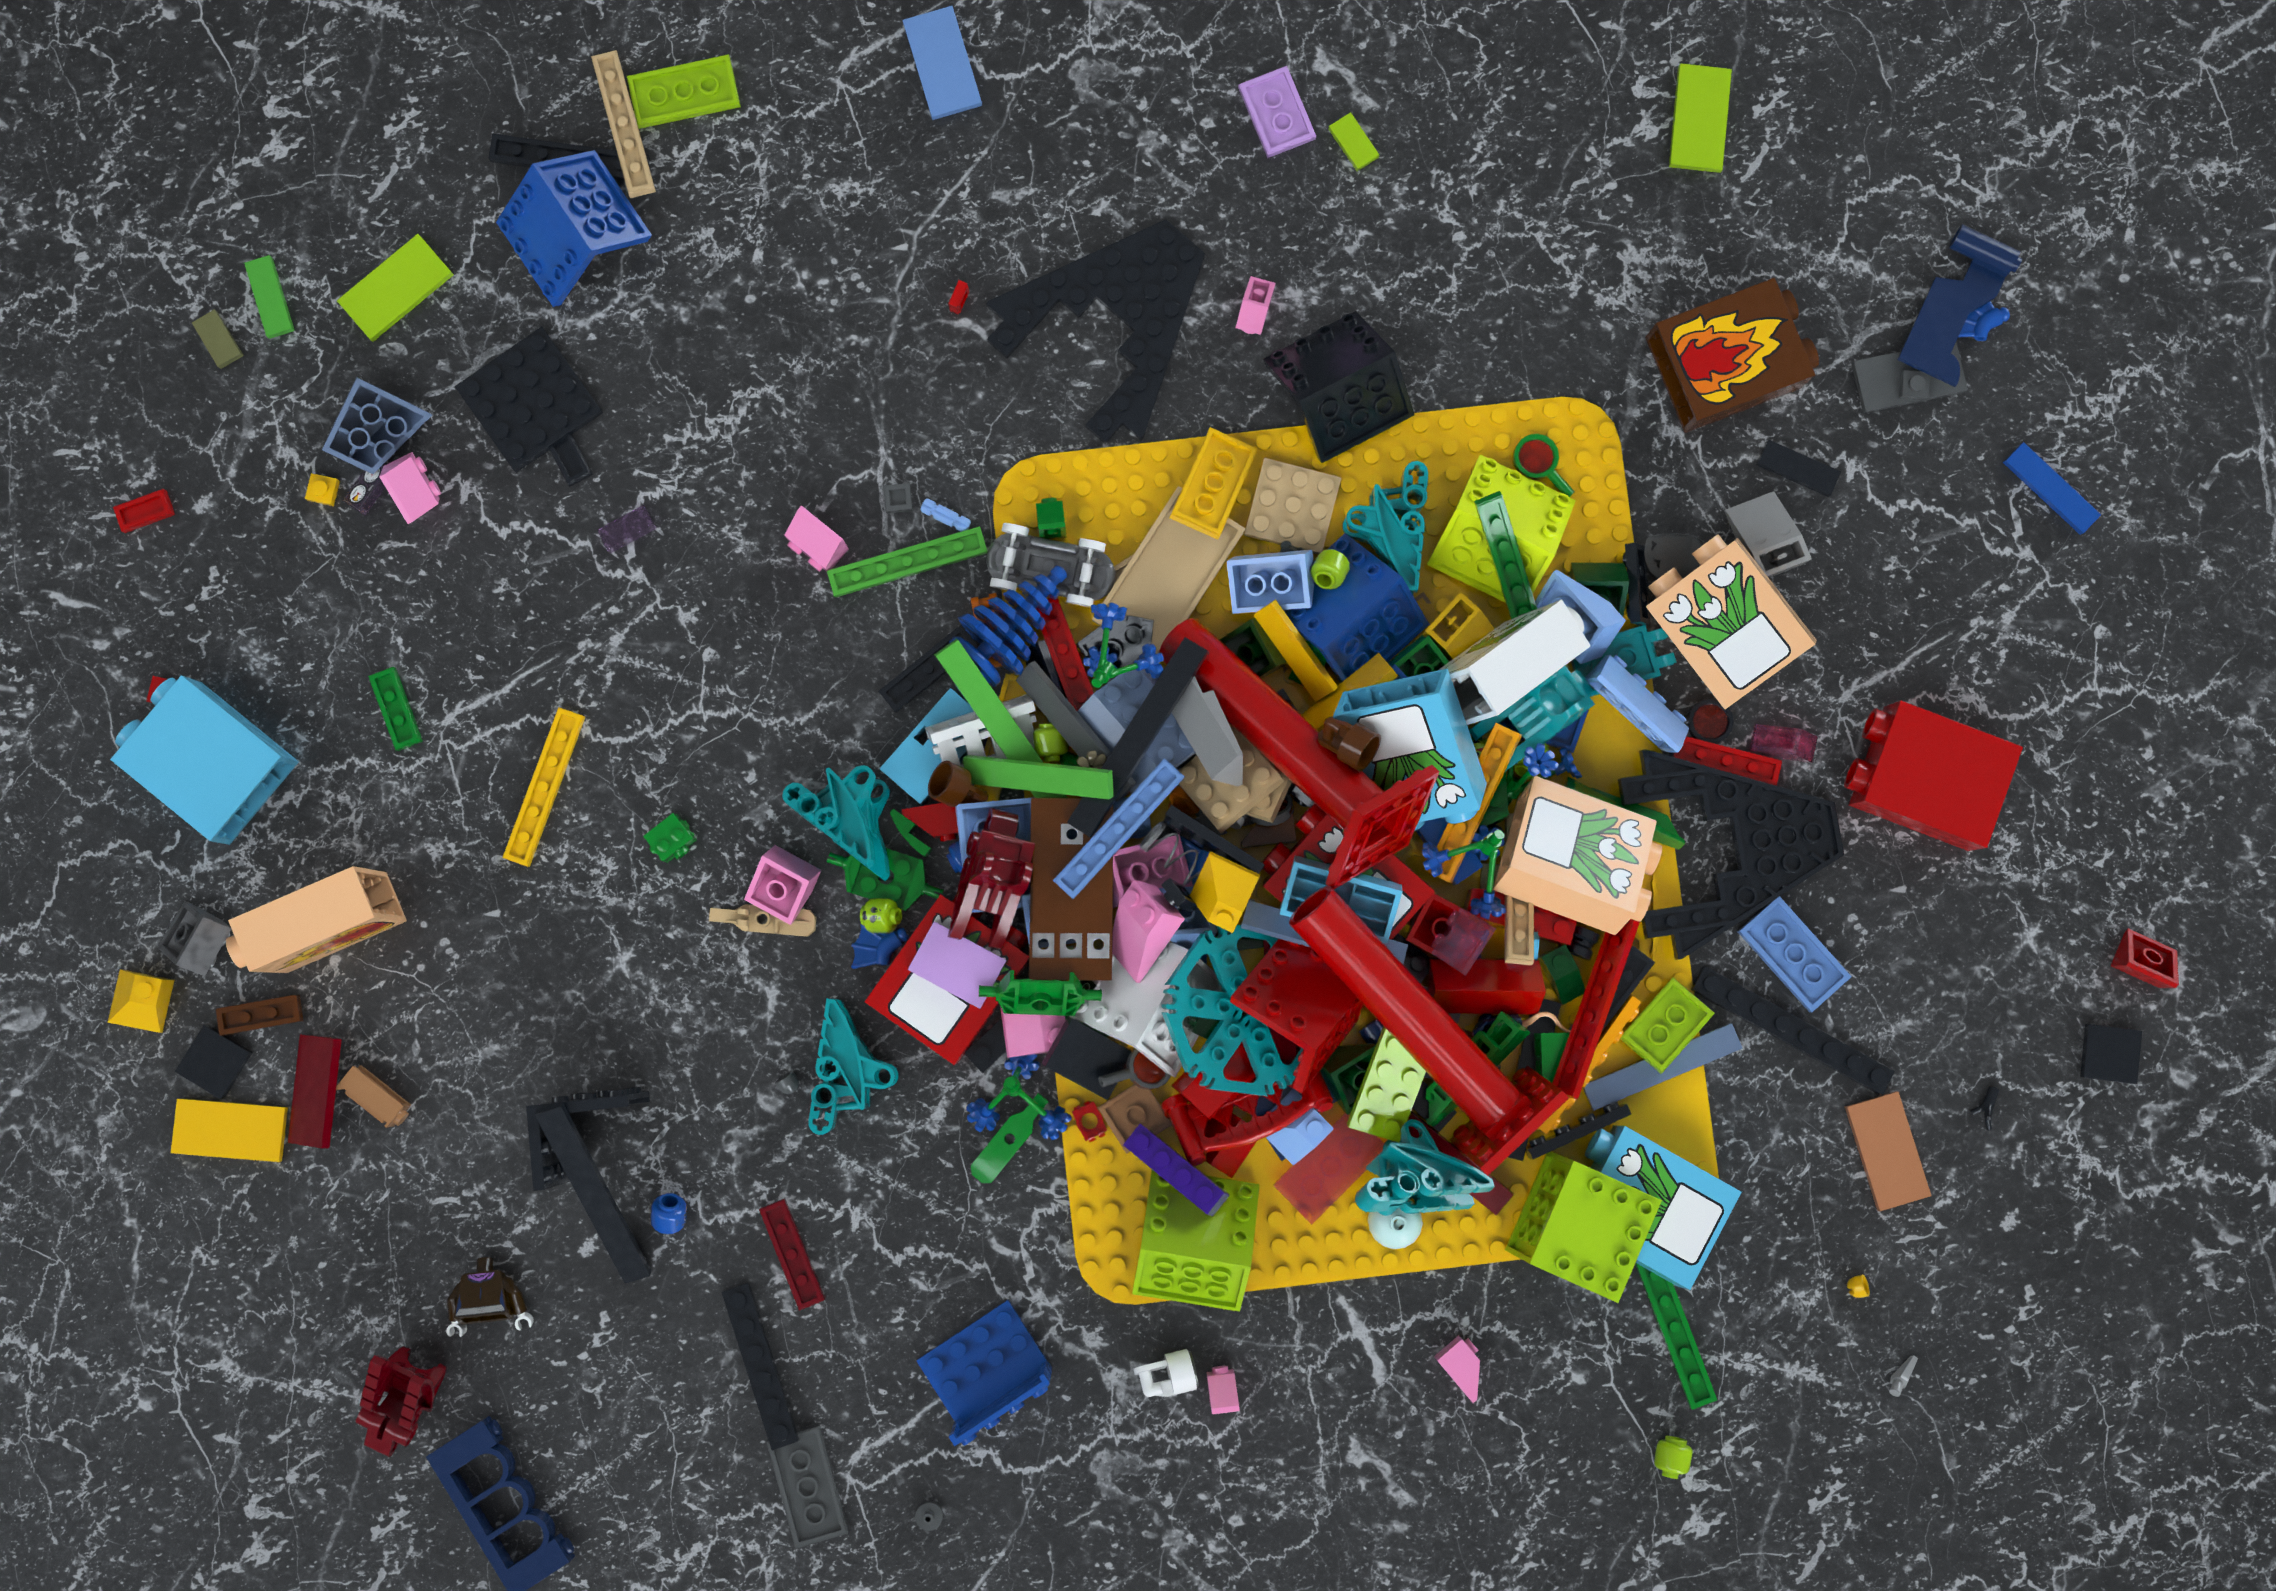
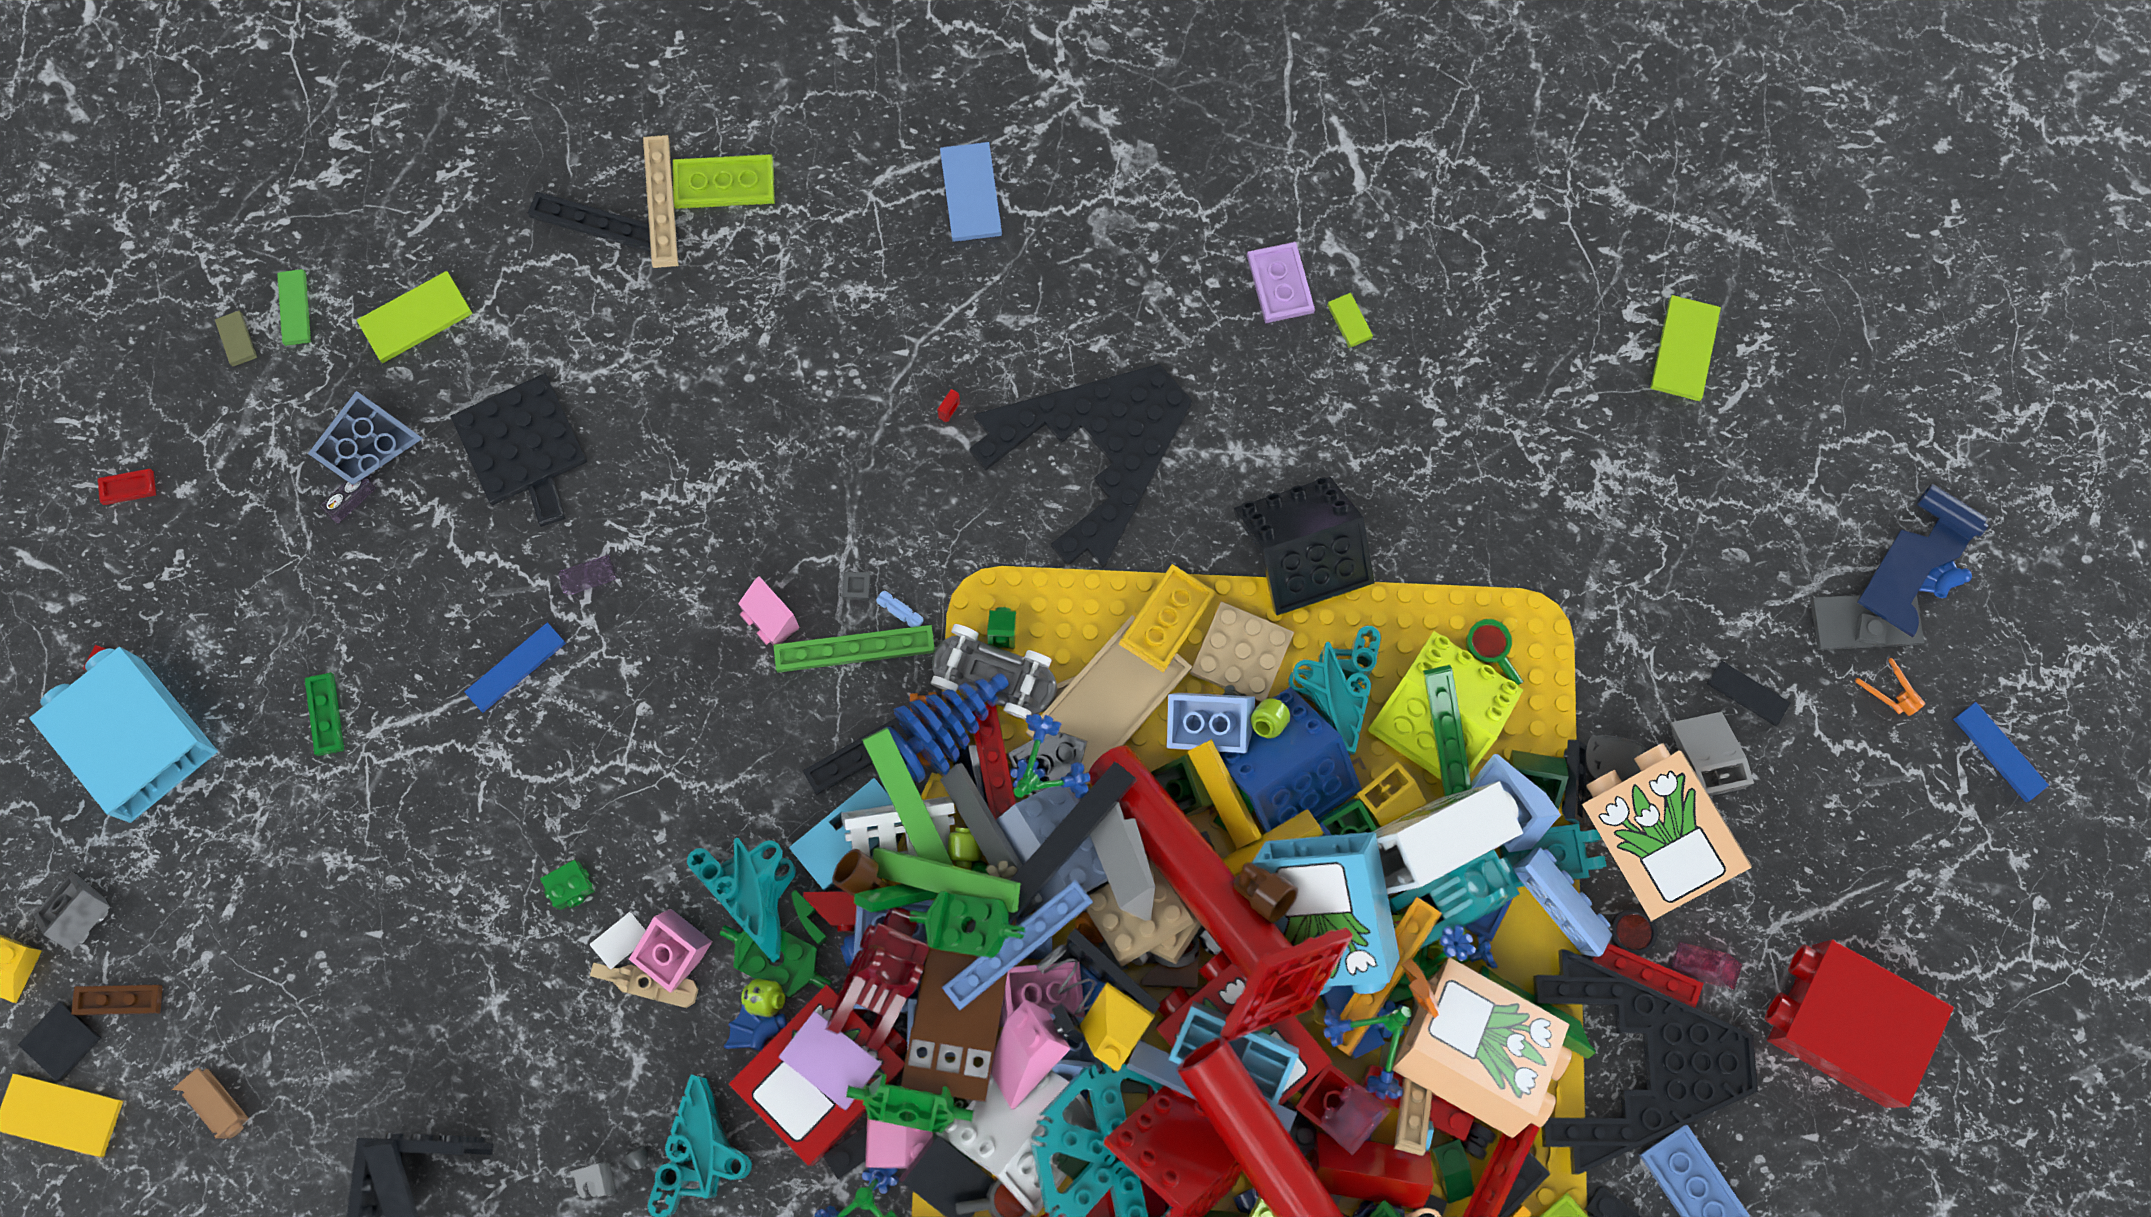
camera: 10 degrees right, 10 degrees down
(314, 921) = (191, 912): light nougat brick -> none
(314, 1091) = (152, 1088): dark red tile -> none
(322, 489) = (302, 493): yellow plate -> none
(410, 486) = (385, 501): bright pink slope -> none
(543, 787) = (452, 815): yellow tile -> none
(565, 217) = (588, 272): blue bracket -> none
(574, 633) = (515, 667): none -> blue tile
(730, 883) = (618, 940): none -> white sticker
(754, 1108) = (598, 1179): none -> light grey hinge
(989, 802) = (891, 897): none -> green tile
(1049, 811) = (948, 920): none -> green plate
(1255, 305) = (1233, 457): bright pink slope -> none
(1510, 809) = (1420, 988): none -> orange slope
(1732, 354) = (1694, 572): brick -> none
(1957, 450) = (1908, 699): none -> orange plant

